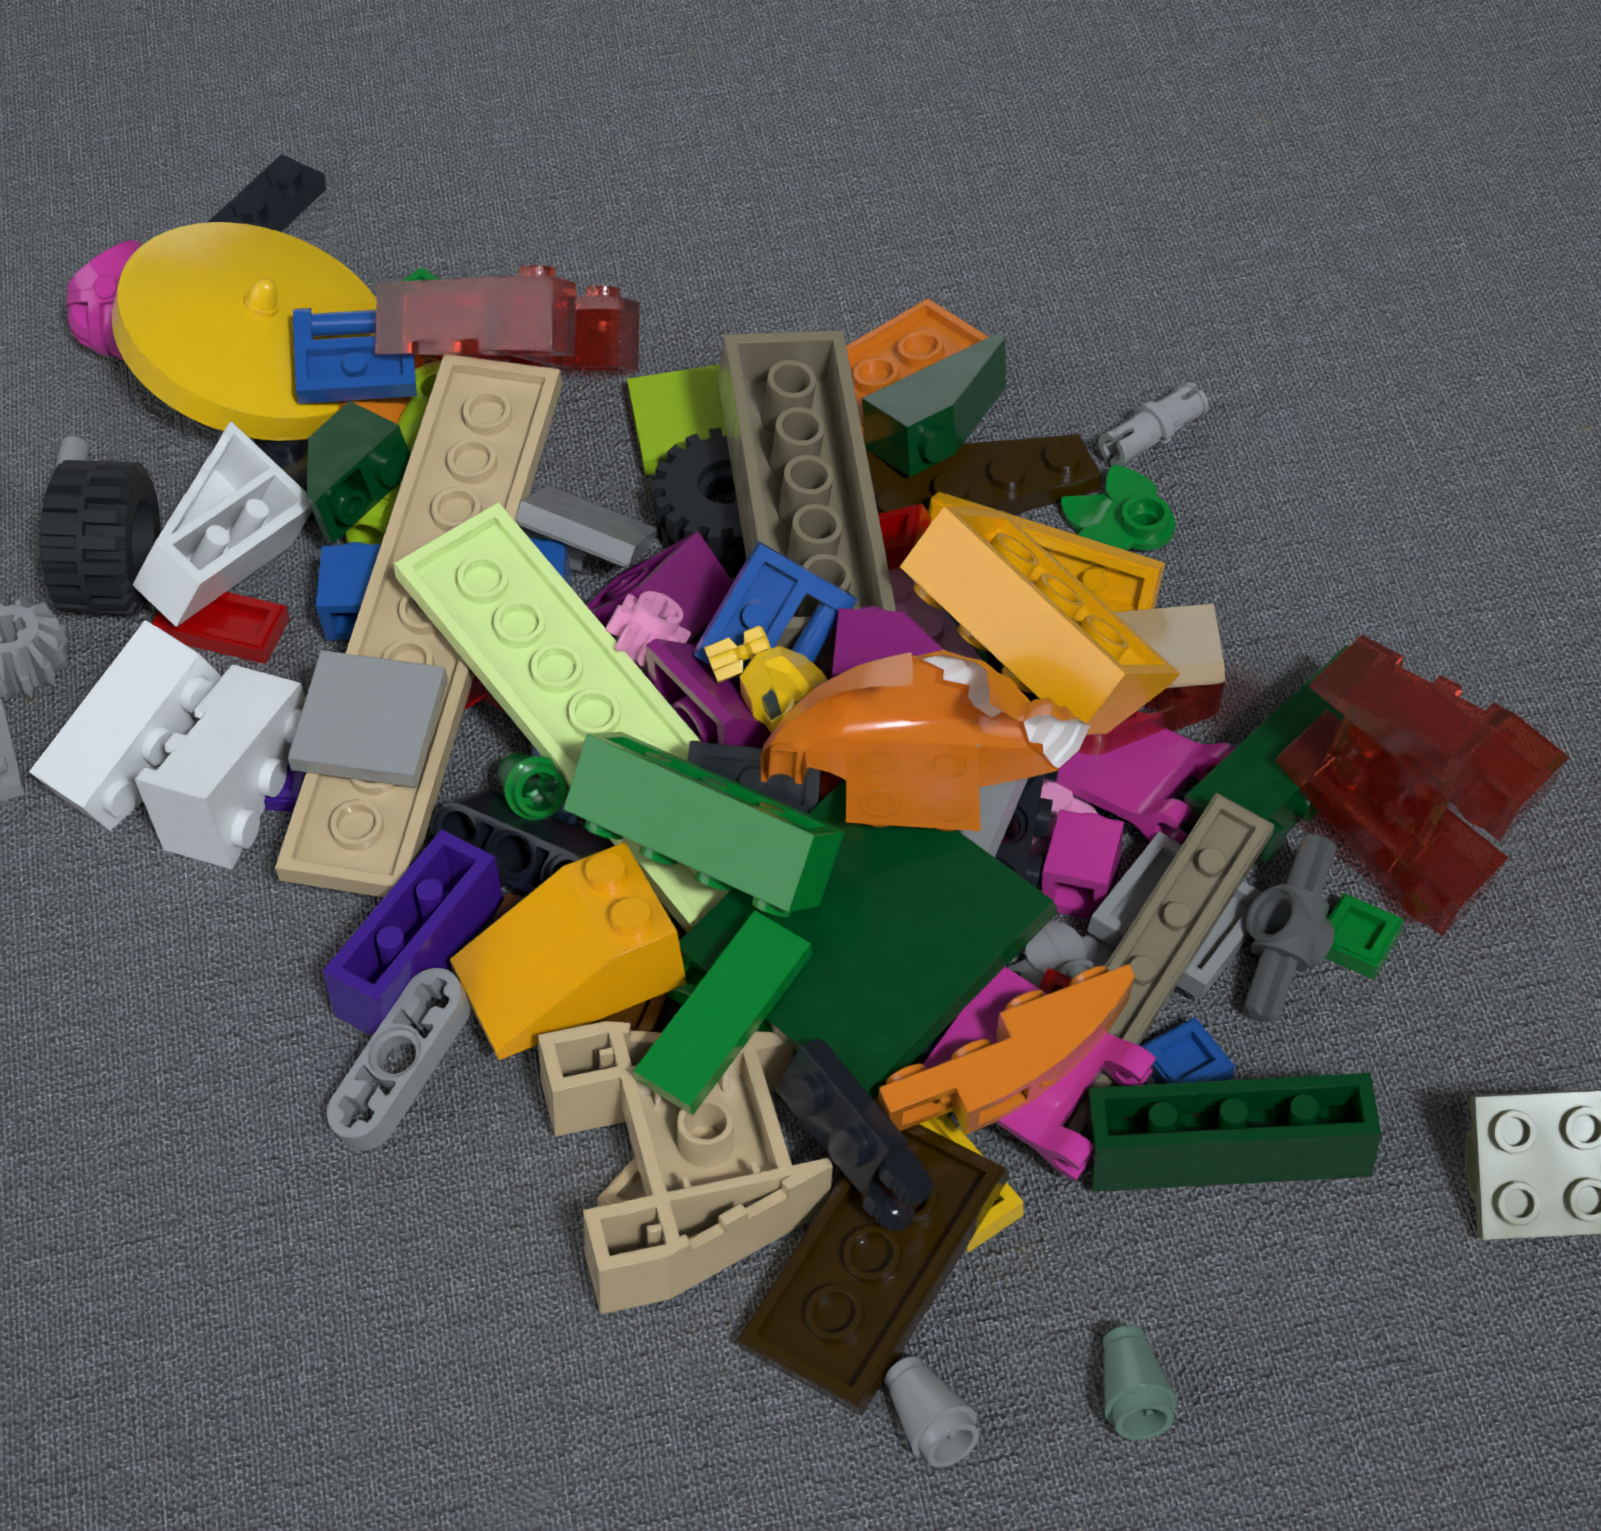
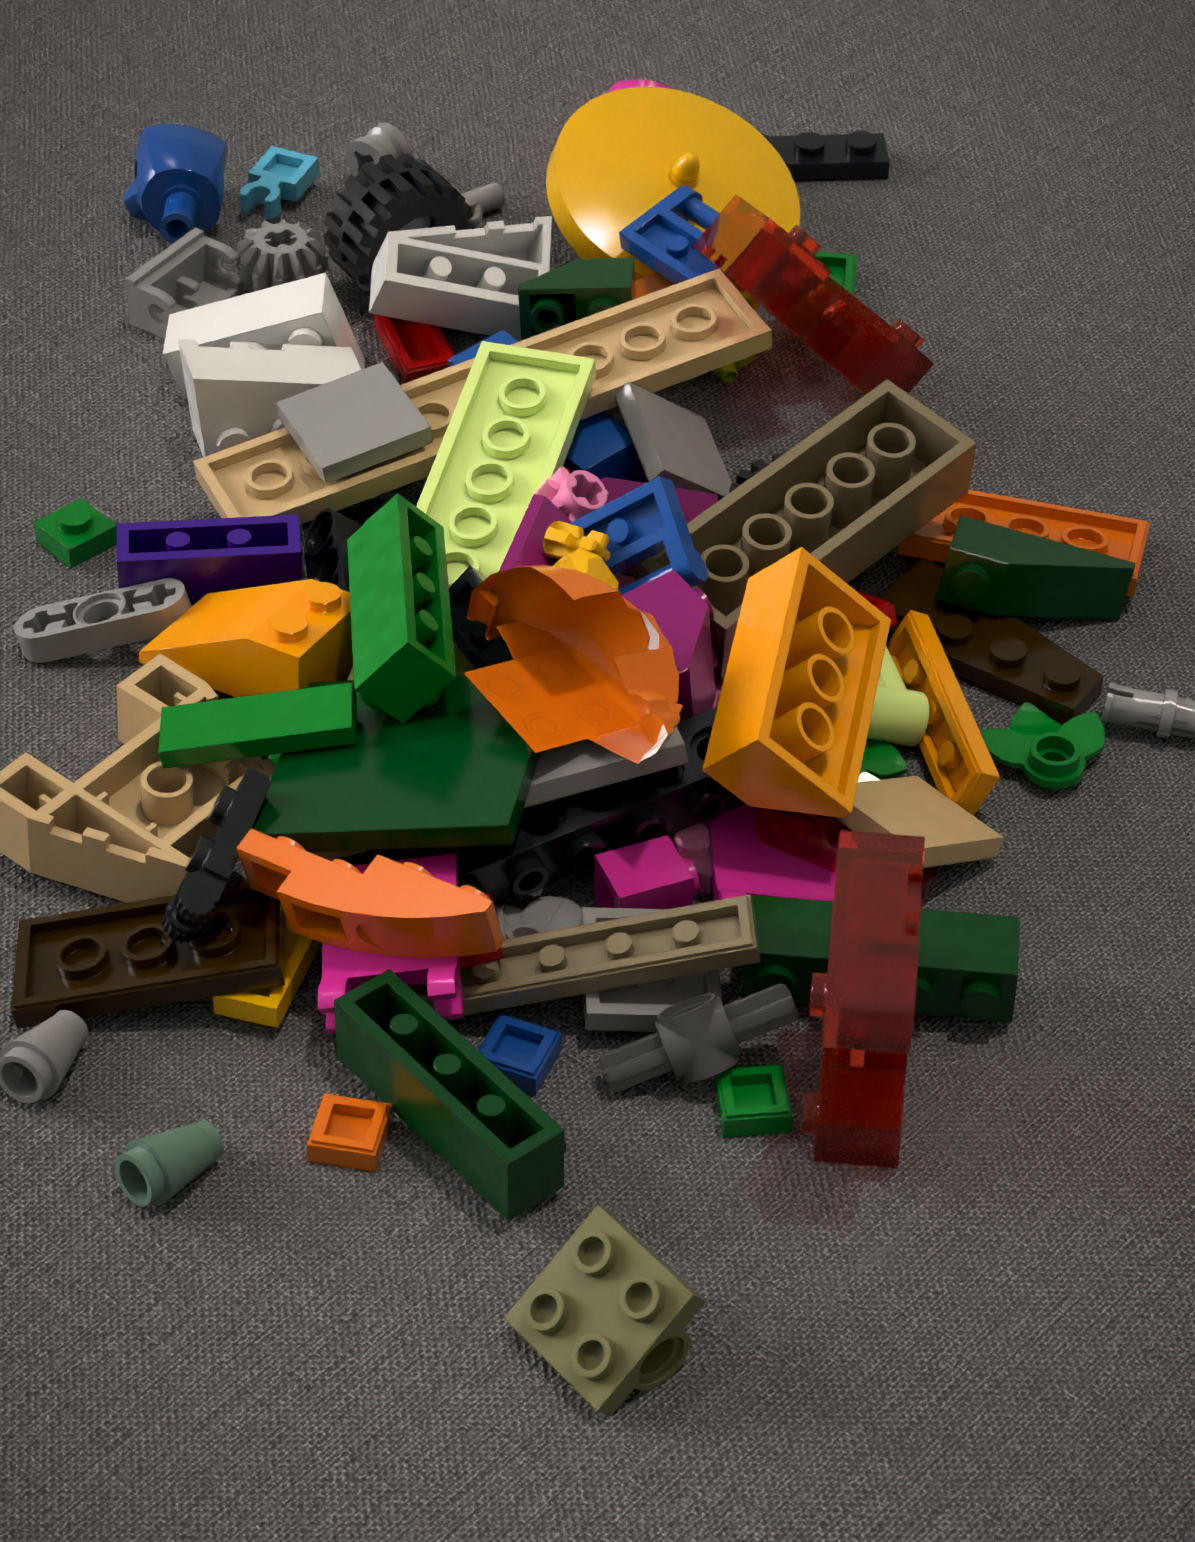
camera: 50 degrees right, 10 degrees down
(233, 1016) = (76, 532): none -> green plate
(1186, 1231) = (349, 1132): none -> orange tile

